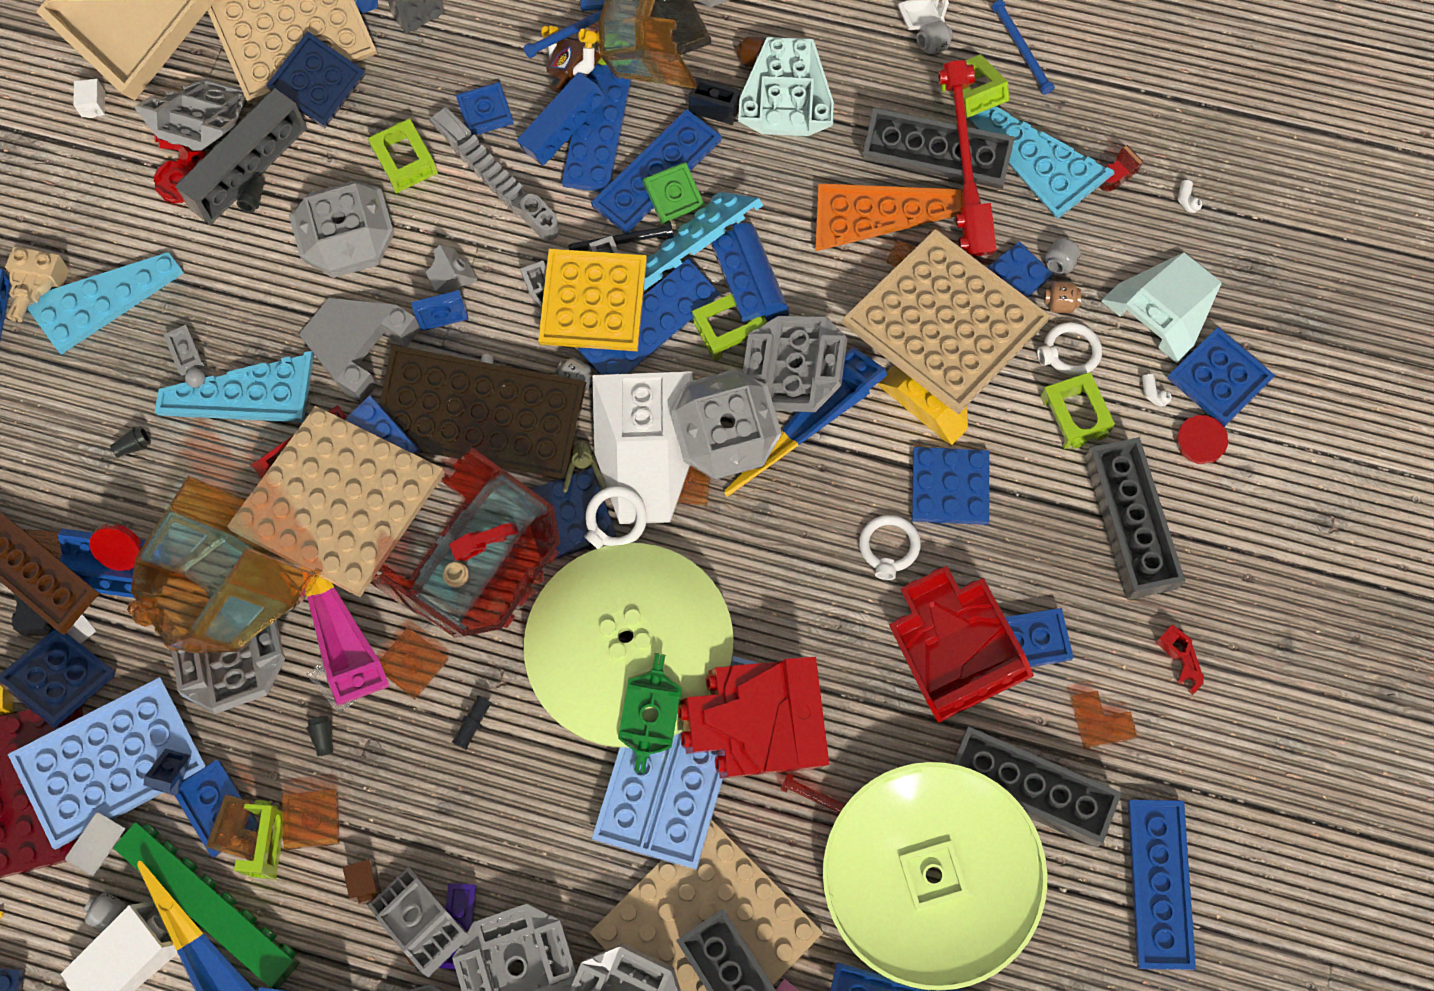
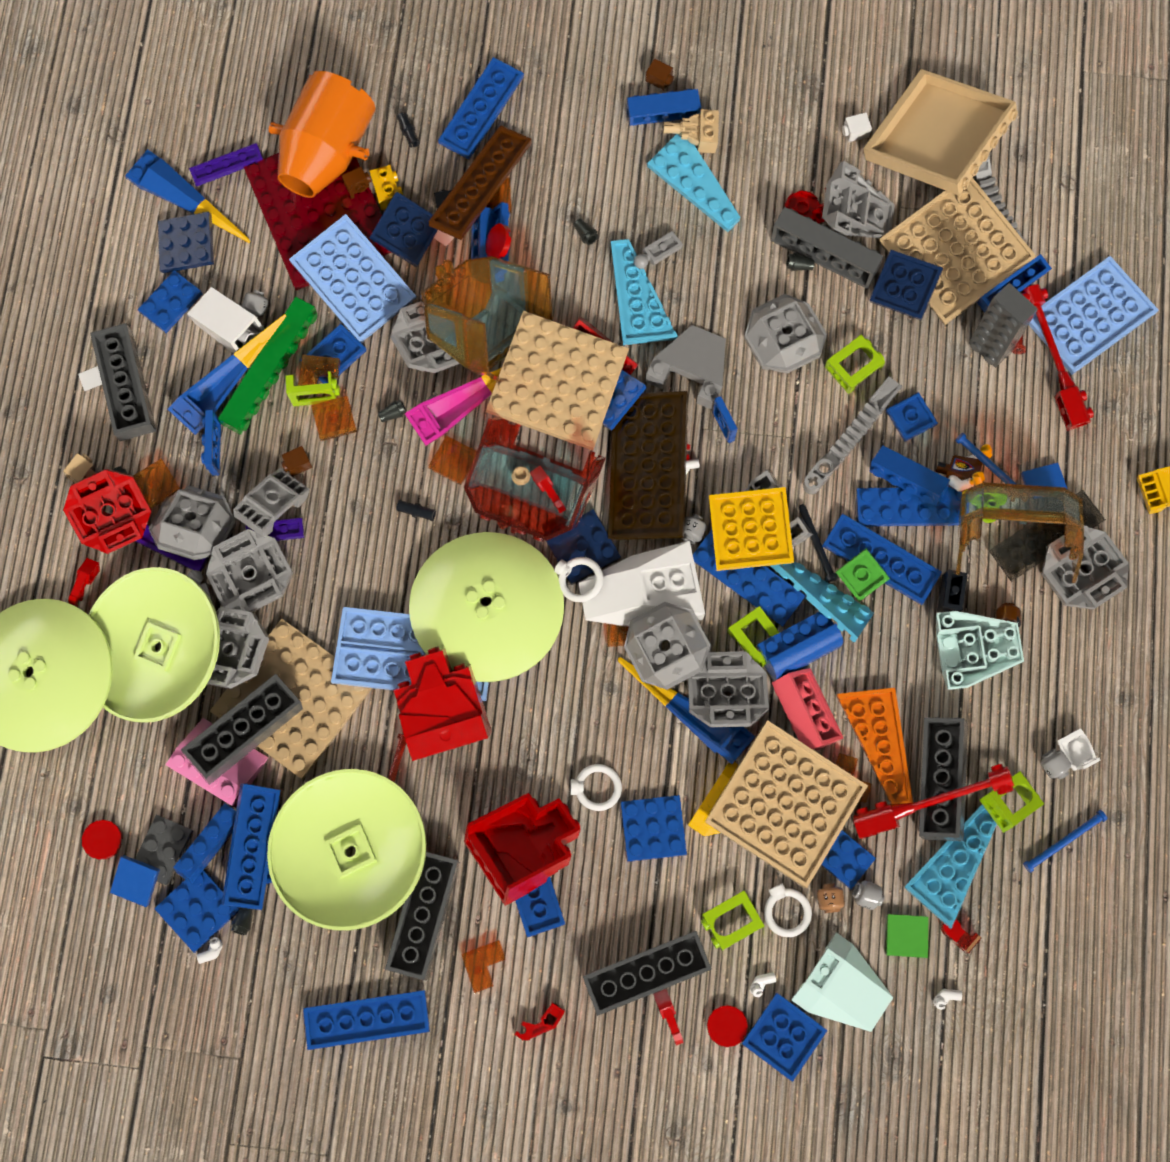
camera: 80 degrees right, 5 degrees up
(95, 843) = (297, 285): panel -> none
(167, 772) = (348, 317): dark blue slope -> none
(449, 270) = (761, 420): light grey brick -> none
(582, 458) = (625, 547): olive plant -> none
(645, 691) = (445, 630): green plate -> none
(829, 284) = (807, 709): none -> coral slope
(1113, 226) = (907, 936): none -> bright green tile
(1181, 502) = (667, 1011): none -> red piece

